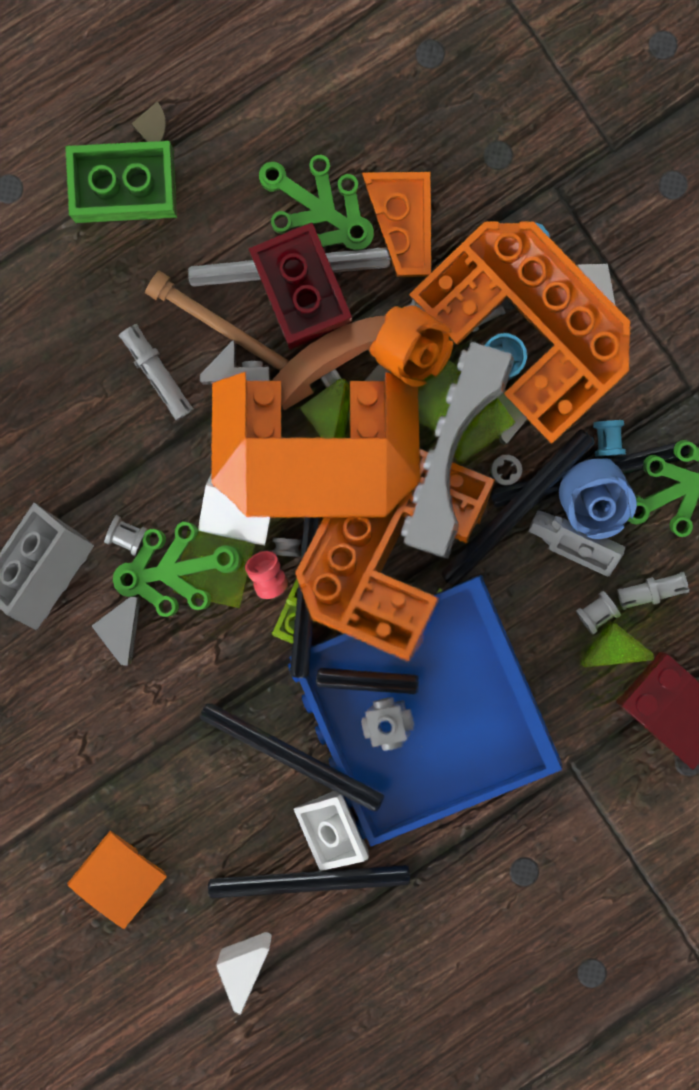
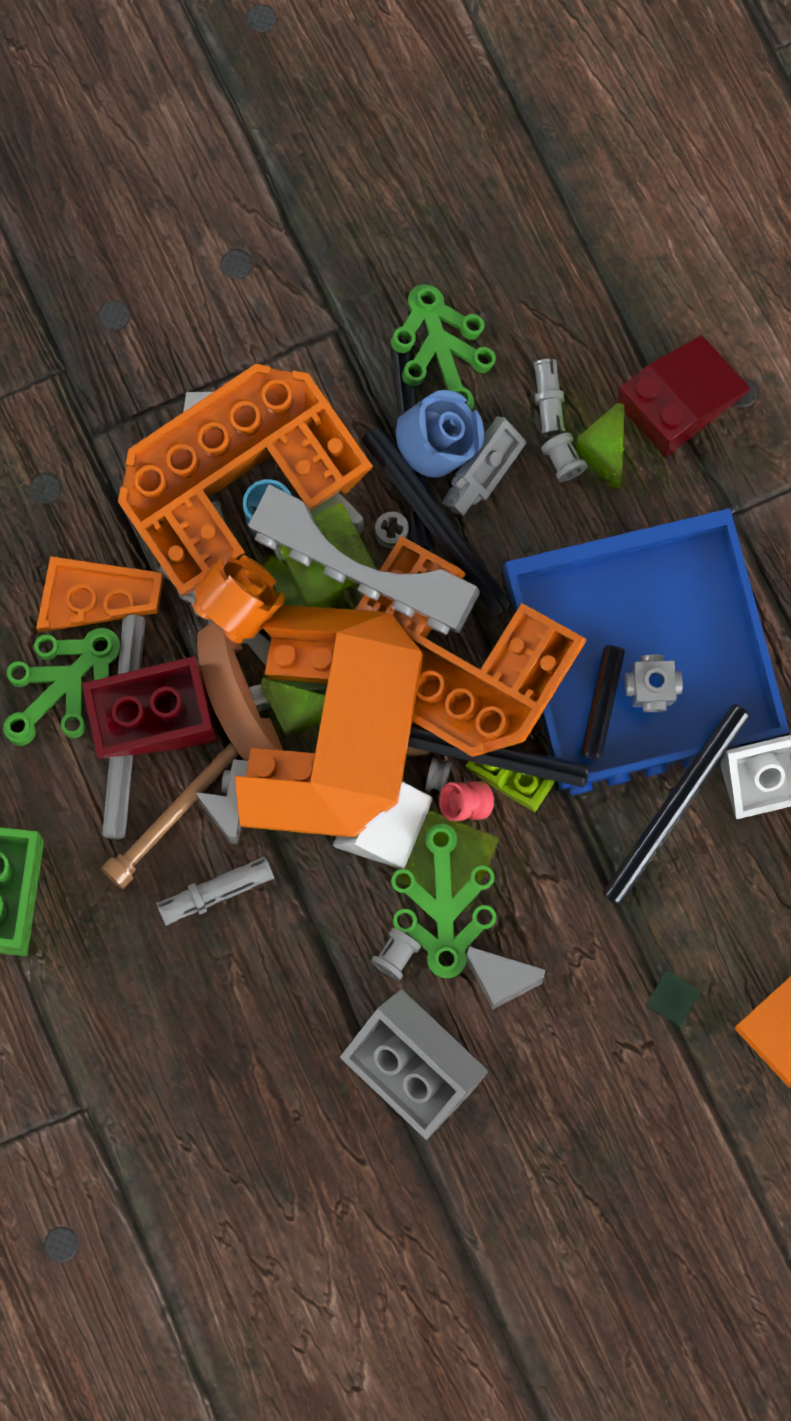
camera: 80 degrees left, 15 degrees down
(125, 775) = (672, 999): none -> clear green plate
(609, 438) = (375, 415): medium azure bush -> none

